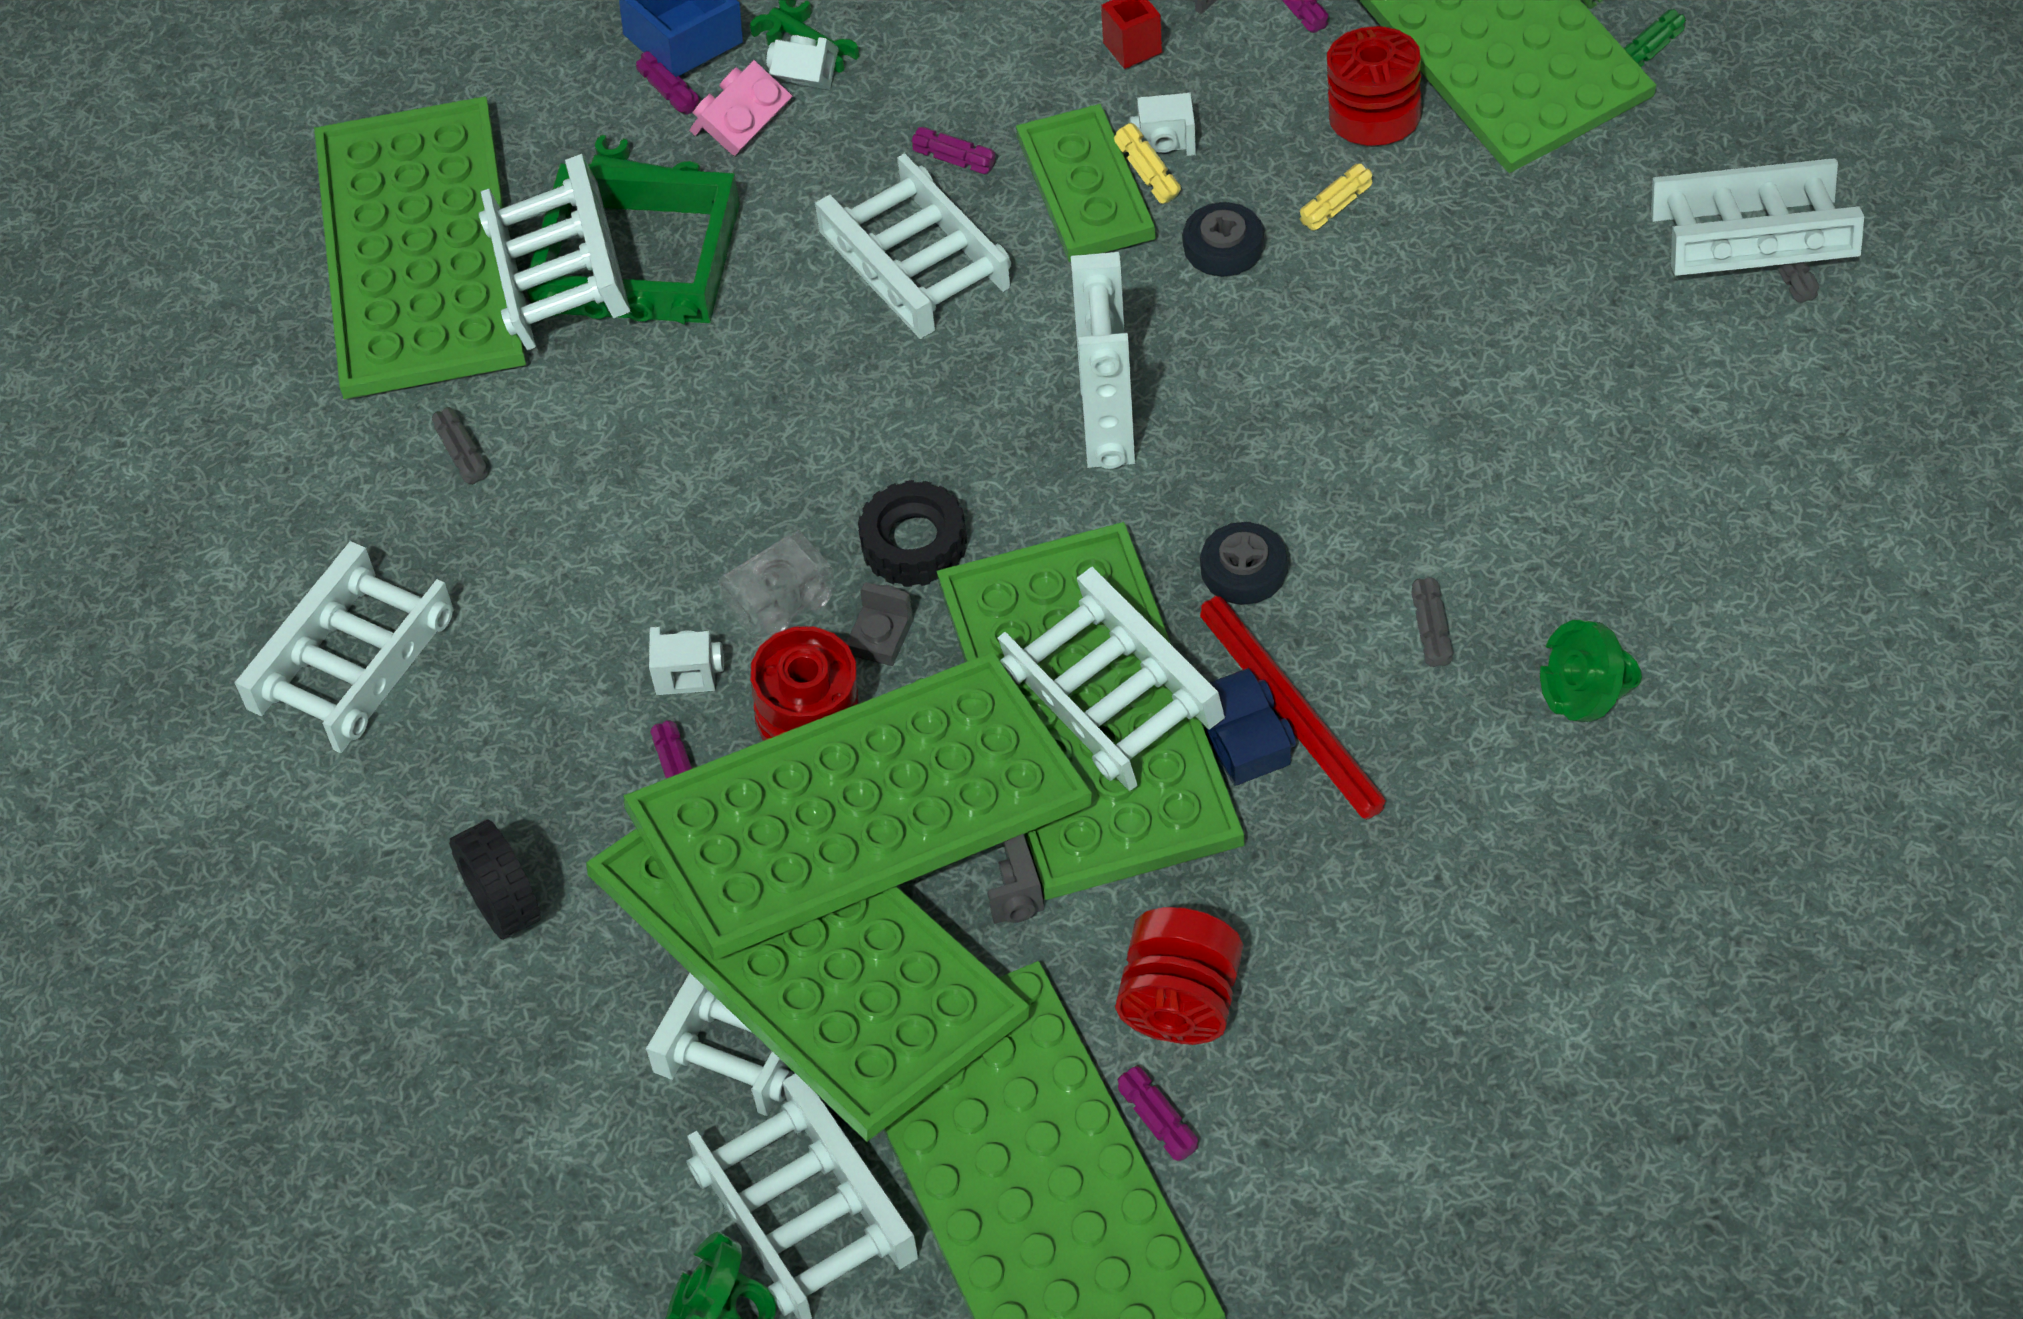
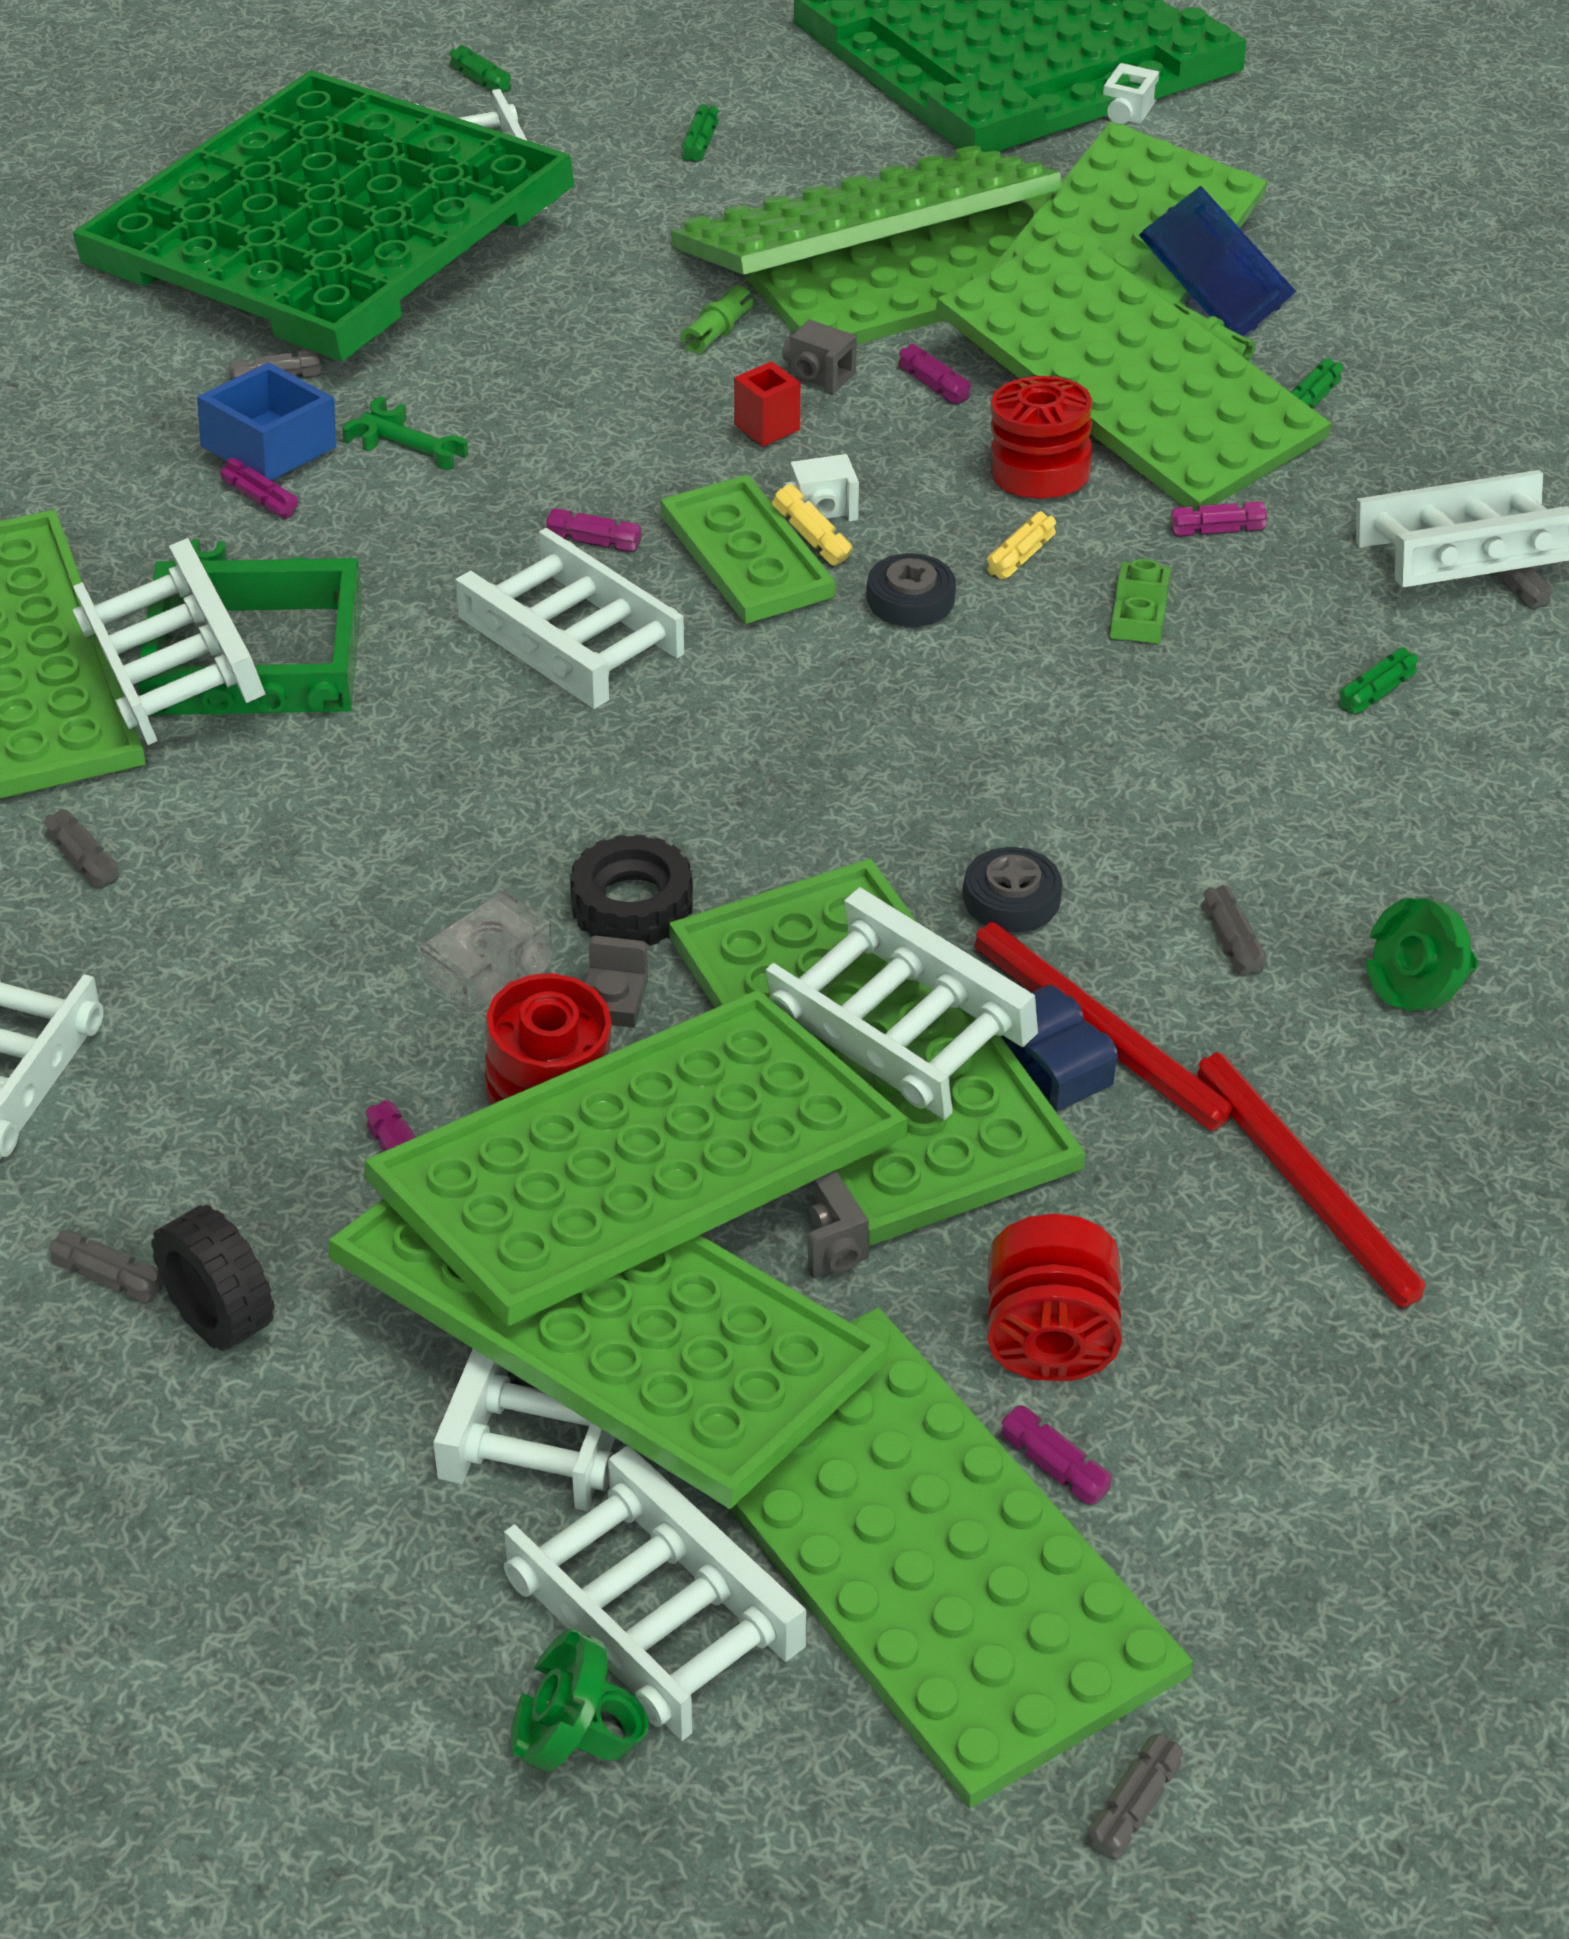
camera: 15 degrees left, 10 degrees down
(418, 849) = (106, 1265): none -> dark grey axle
(684, 661) = (393, 1038): light aqua brick -> none
(742, 108) = (348, 505): bright pink bracket -> none
(803, 61) = (410, 455): light aqua brick -> none
(1103, 359) = (824, 688): light aqua fence -> none
(1431, 267) = (1140, 601): none -> bright green slope
(1438, 878) = (1313, 1182): none -> red axle
(1525, 181) = (1218, 519): none -> magenta axle
(1629, 371) = (1377, 681): none -> green axle

